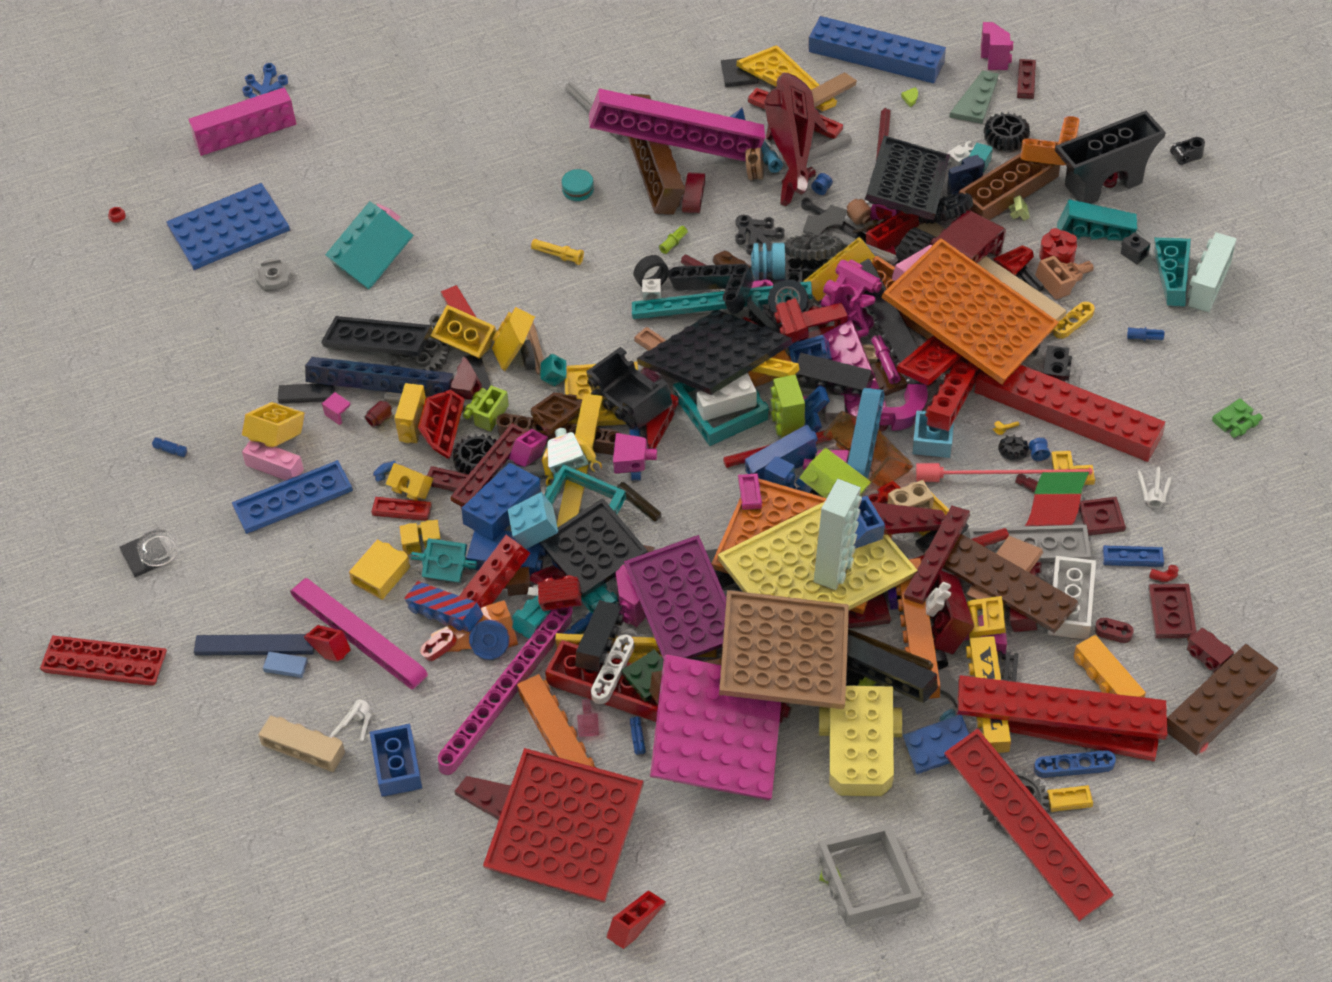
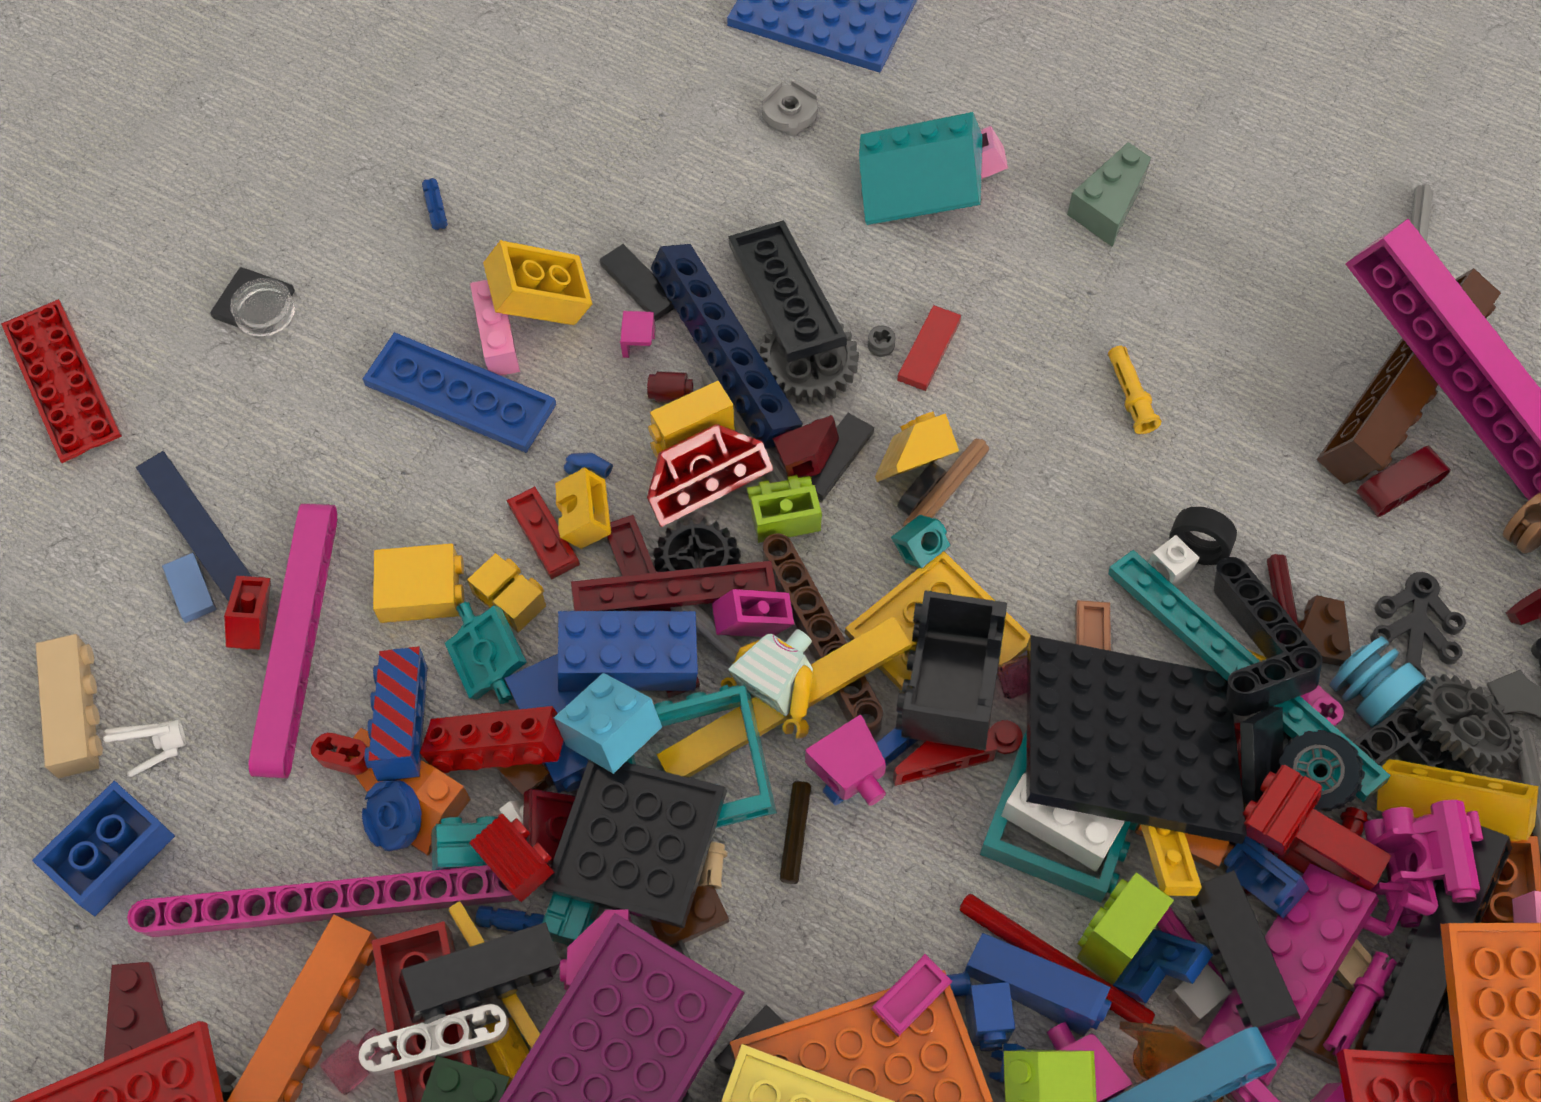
camera: 50 degrees right, 10 degrees up
(455, 190) = (1109, 193): none -> sand green wedge
(464, 332) = (880, 384): yellow slope -> none
(556, 411) = (844, 602): reddish brown wing -> none
(577, 185) = (1267, 327): teal head -> none
(673, 239) = (1295, 518): lime axle -> none

